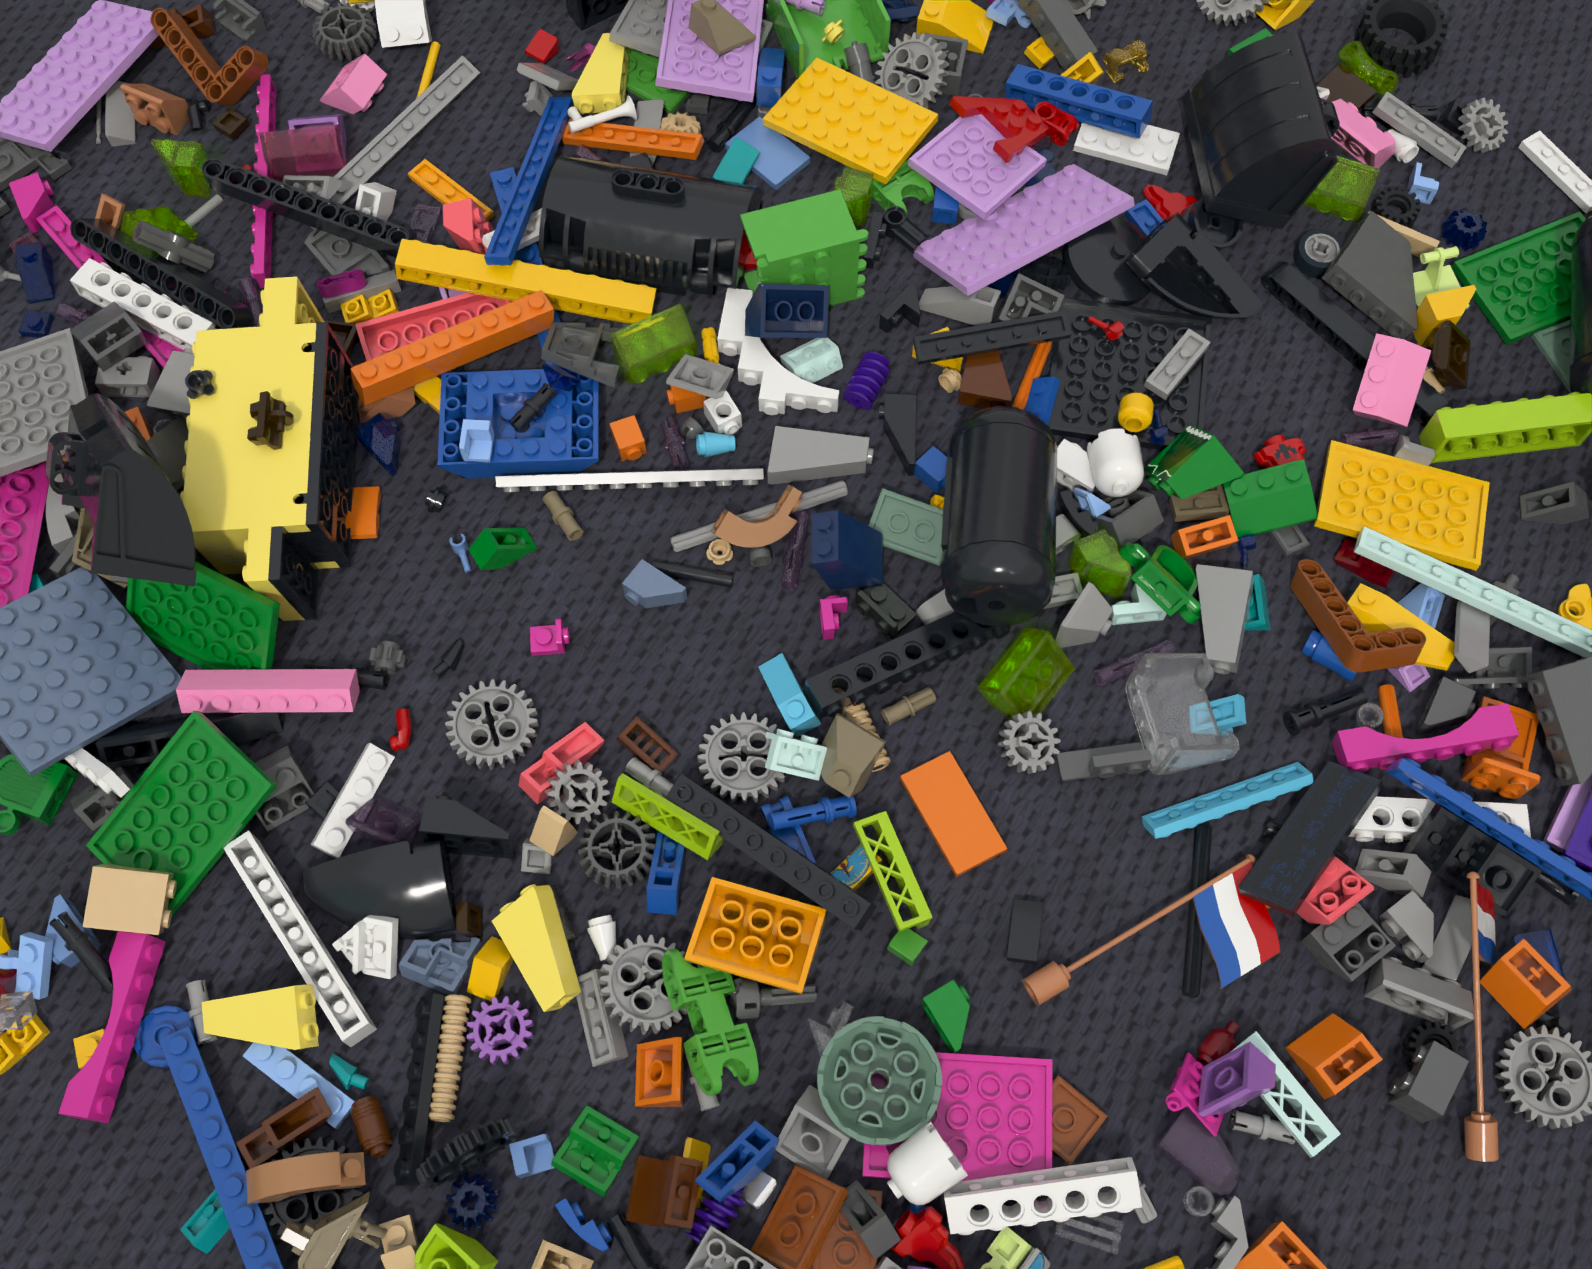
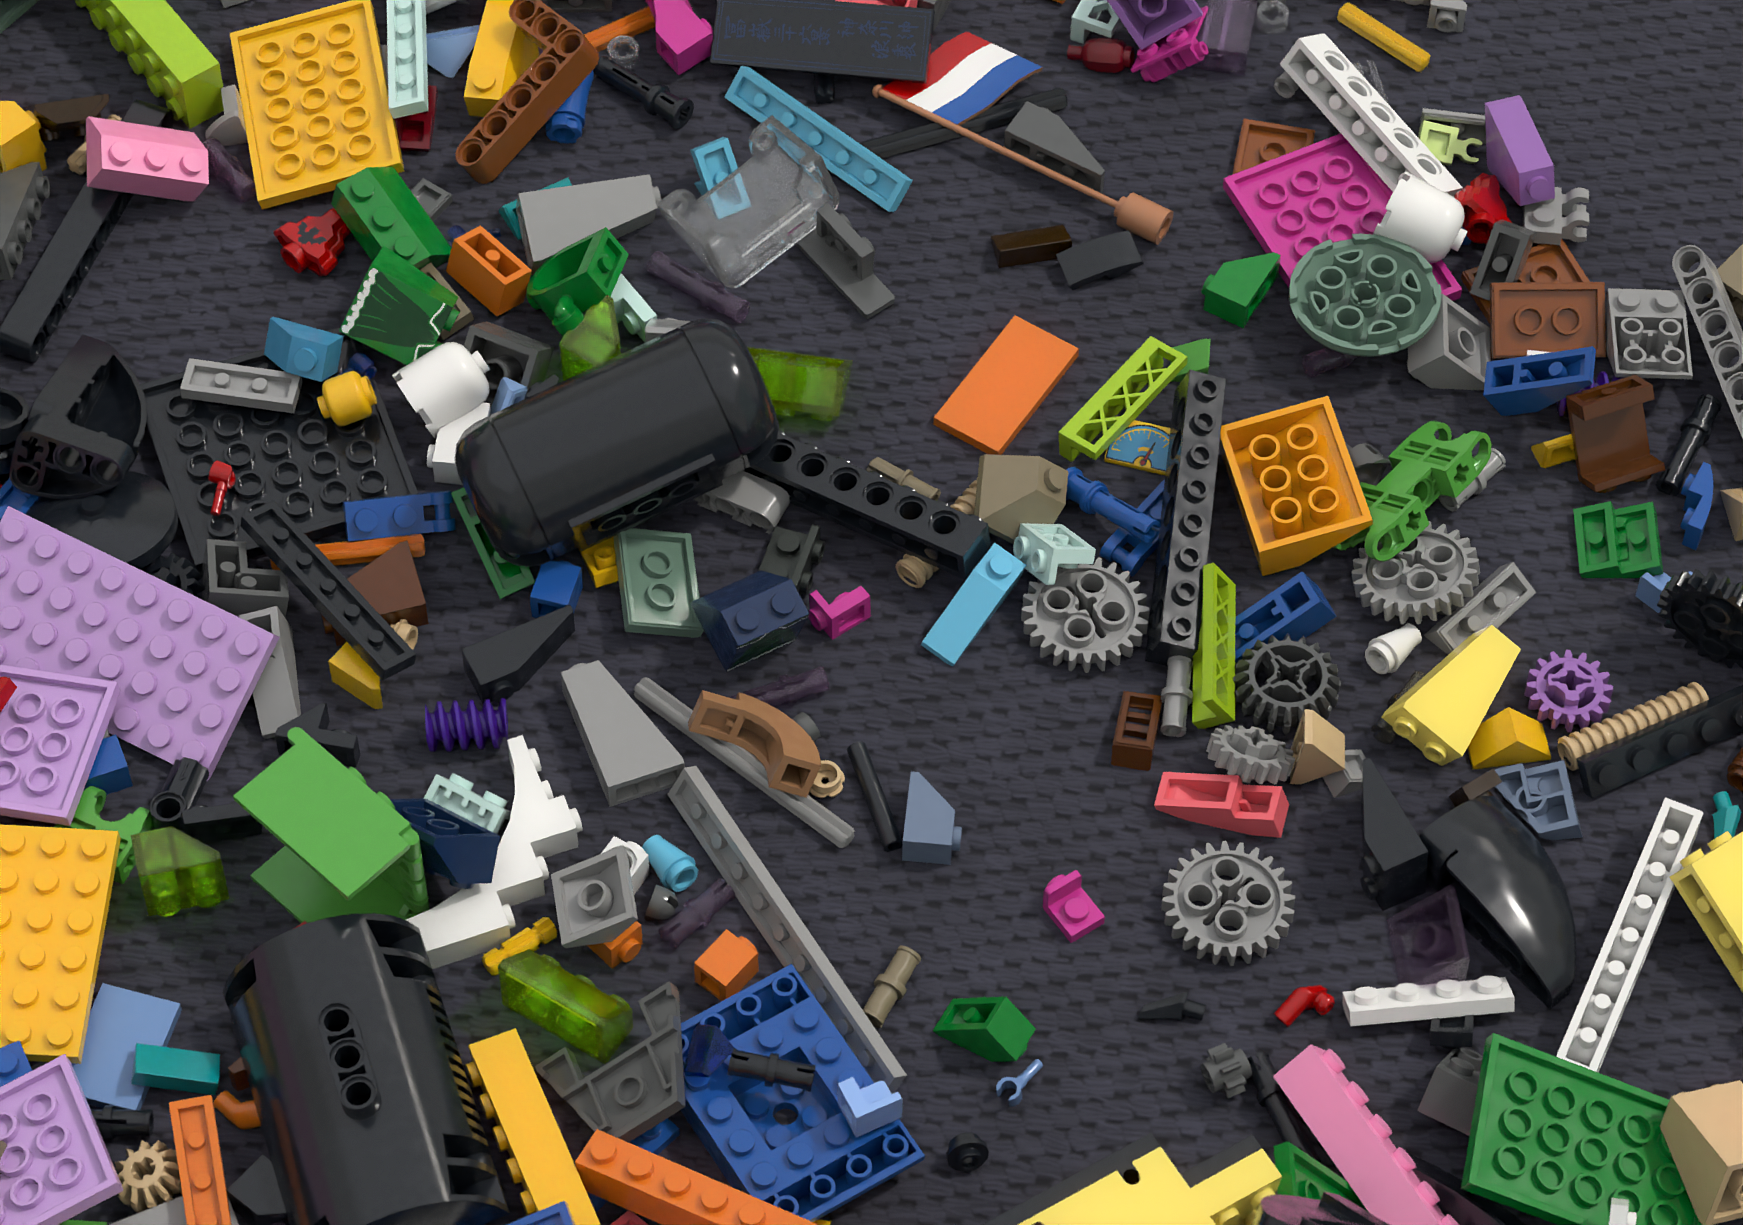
camera: 120 degrees left, 10 degrees down
(372, 946) = (1578, 865): white slope -> none
(660, 1073) = (1497, 512): orange slope -> none
(838, 1019) = (1347, 380): clear slope -> none
(1025, 754) = (874, 340): light grey gear -> none
(1066, 896) = (1030, 245): none -> dark brown slope
(1147, 954) = (1050, 142): none -> dark grey slope
(1182, 402) = (303, 349): none -> dark azure slope

